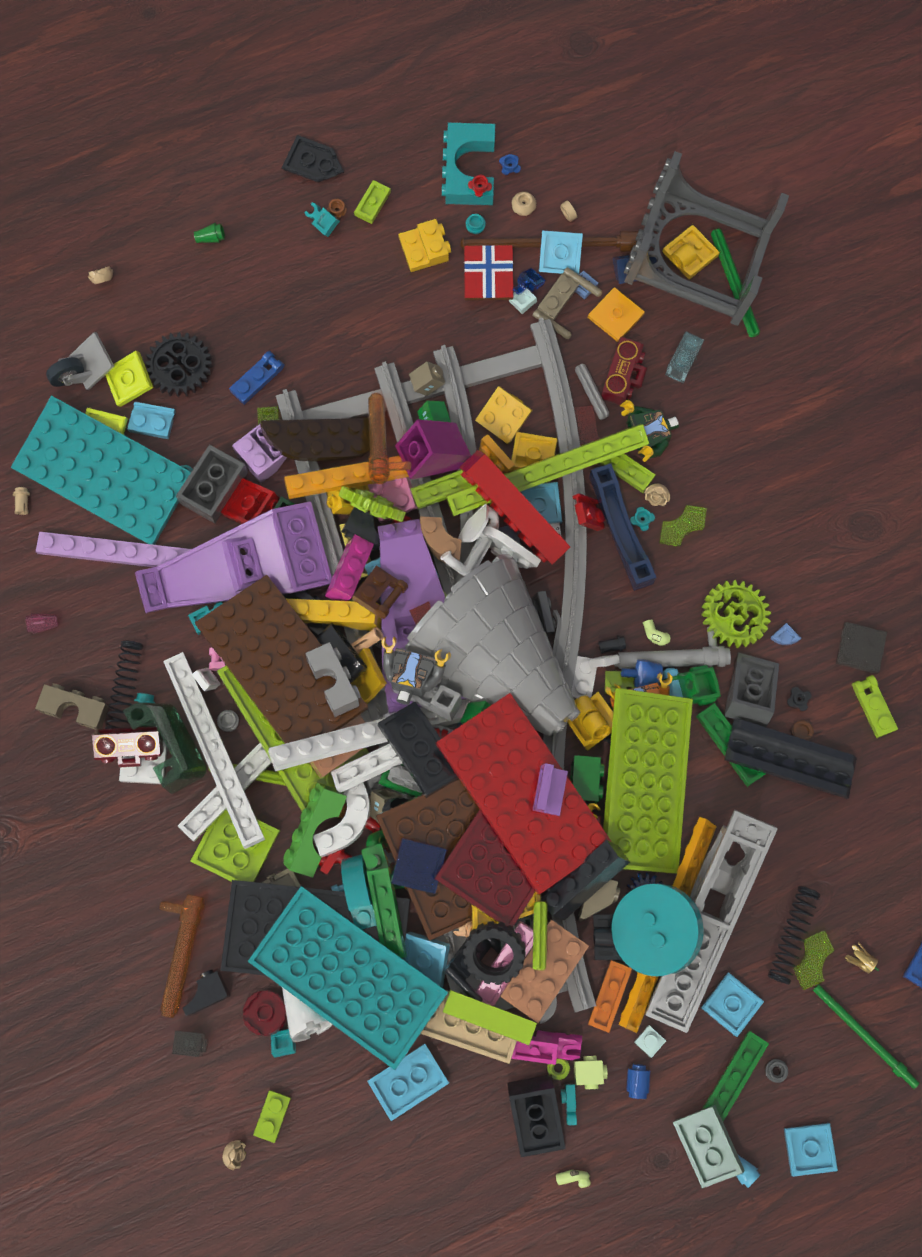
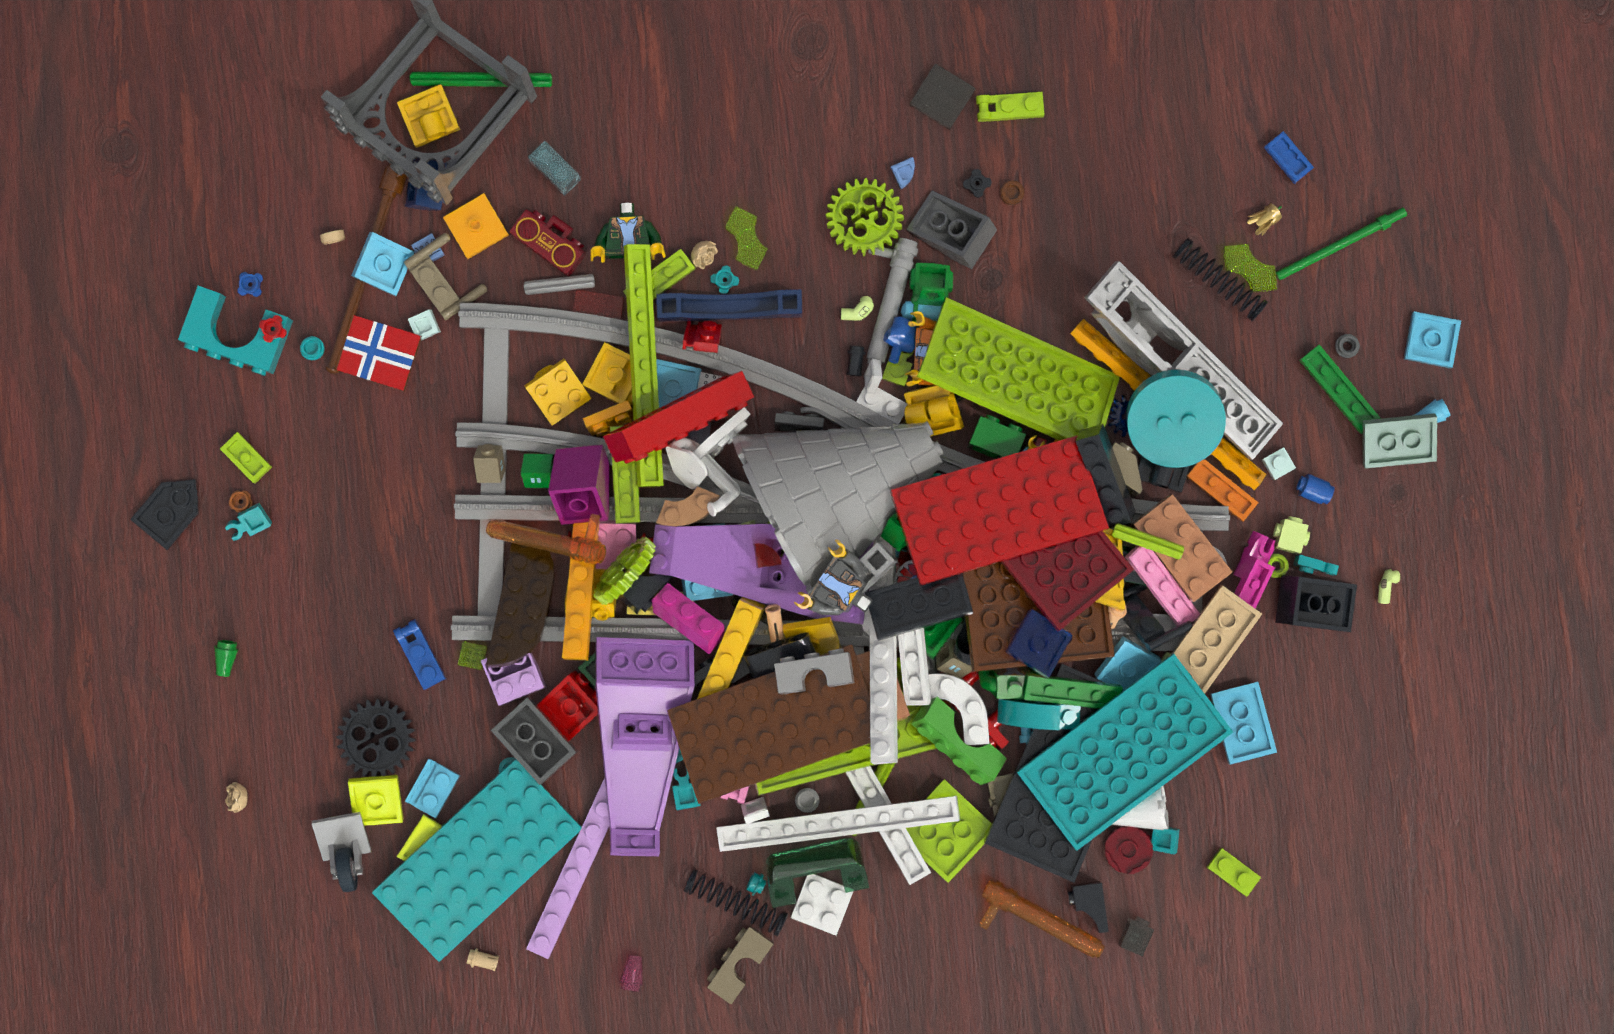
camera: 70 degrees left, 10 degrees up
(121, 742) = (806, 916): piece -> none
(234, 1154) = (1260, 922): tan plate -> none
(373, 589) = (723, 598): reddish brown plate -> none
(403, 778) = (936, 632): light grey plate -> none
(425, 245) = (320, 415): yellow plate -> none
(489, 1017) = (1211, 619): lime tile -> none
(492, 974) = (1169, 603): black tyre -> none
(523, 209) = (304, 292): tan plate -> none
(528, 280) = (404, 310): clear blue plate -> none
(550, 790) = (1007, 482): medium lavender panel -> none
(719, 731) = (1003, 273): green plate -> none
(732, 1004) = (1268, 367): medium azure tile -> none
(790, 758) = (1038, 216): black plate -> none

